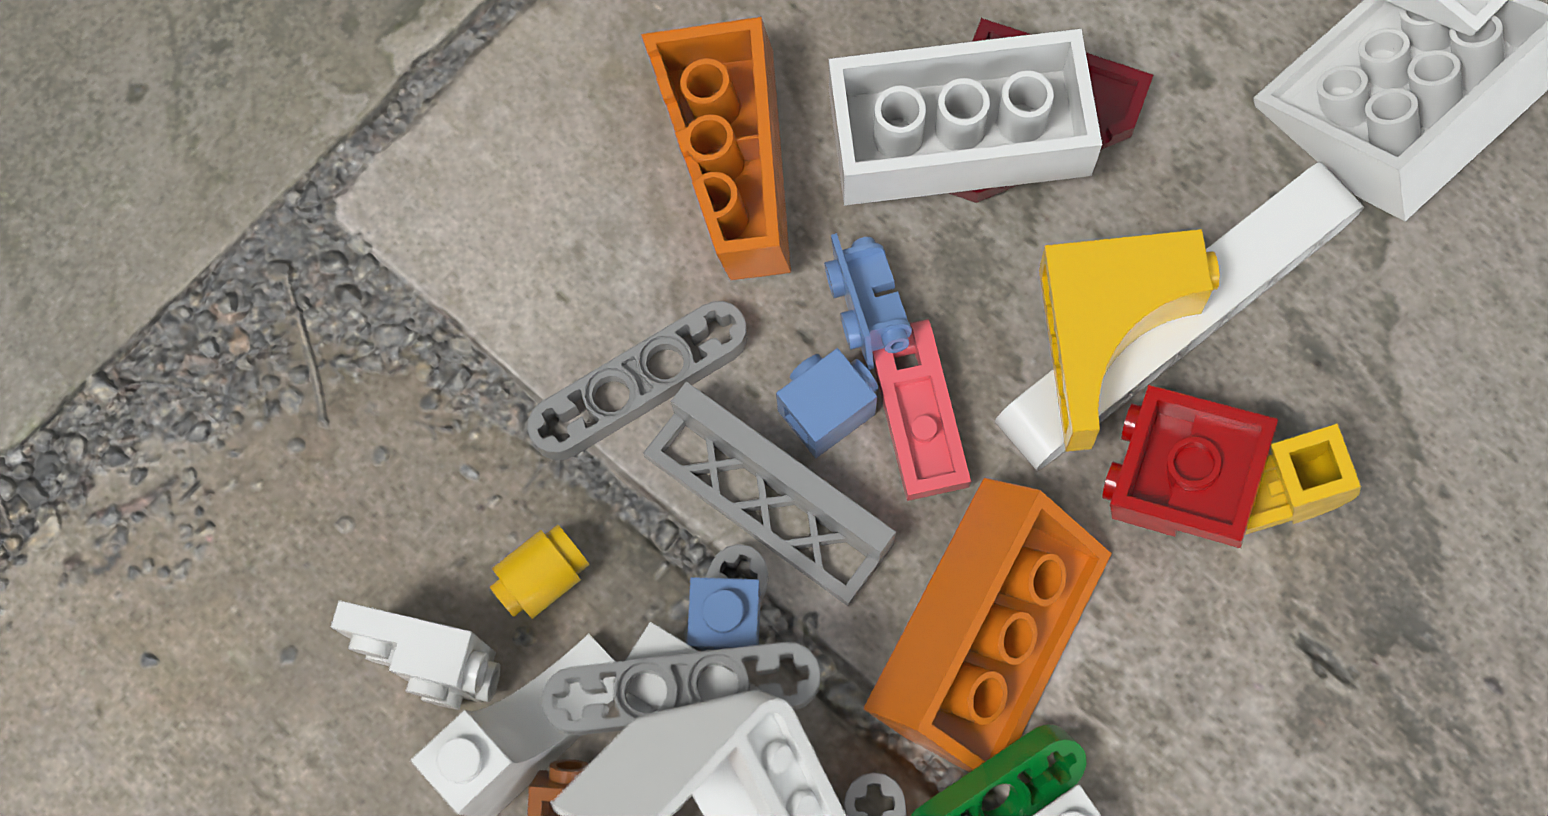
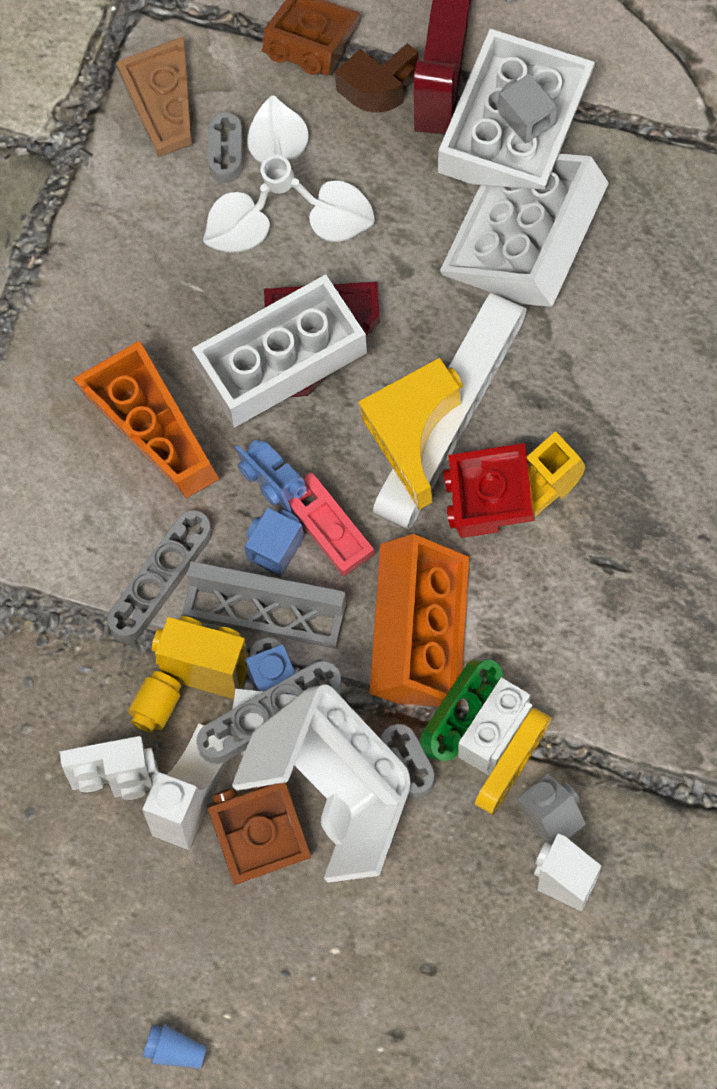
camera: 25 degrees left, 5 degrees down
(632, 536) = (201, 655): none -> yellow brick

